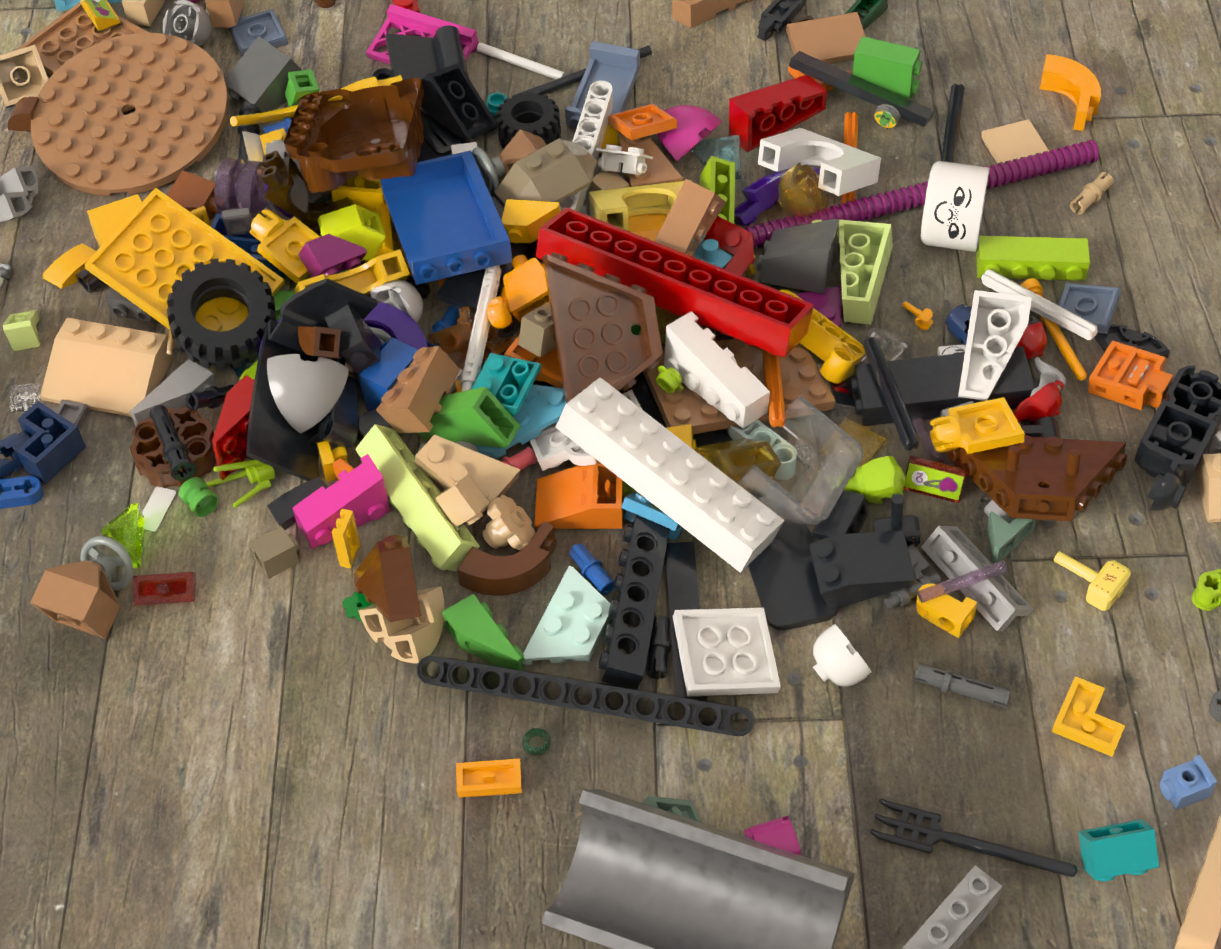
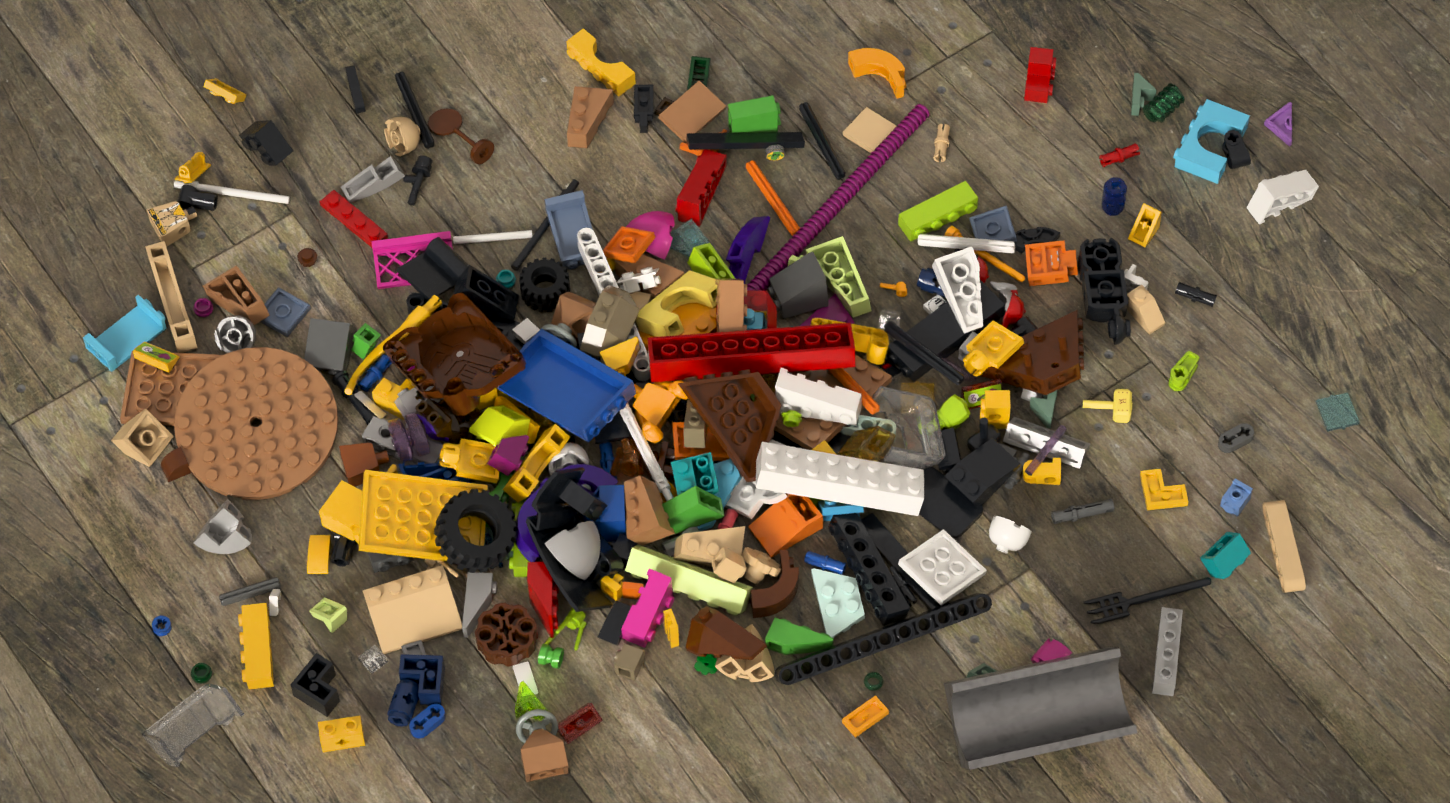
camera: 35 degrees left, 5 degrees up
(174, 450) = (520, 635): black pin -> none
(201, 399) = (504, 588): black pin -> none
(237, 221) = (425, 462): flat silver tile -> none
(319, 341) = (569, 514): reddish brown brick -> none
(800, 192) = (770, 243): clear yellow cylinder -> none
(841, 165) = (743, 205): white arch -> none
(935, 500) = (996, 408): none -> yellow brick
(954, 205) = (874, 201): white piece -> none

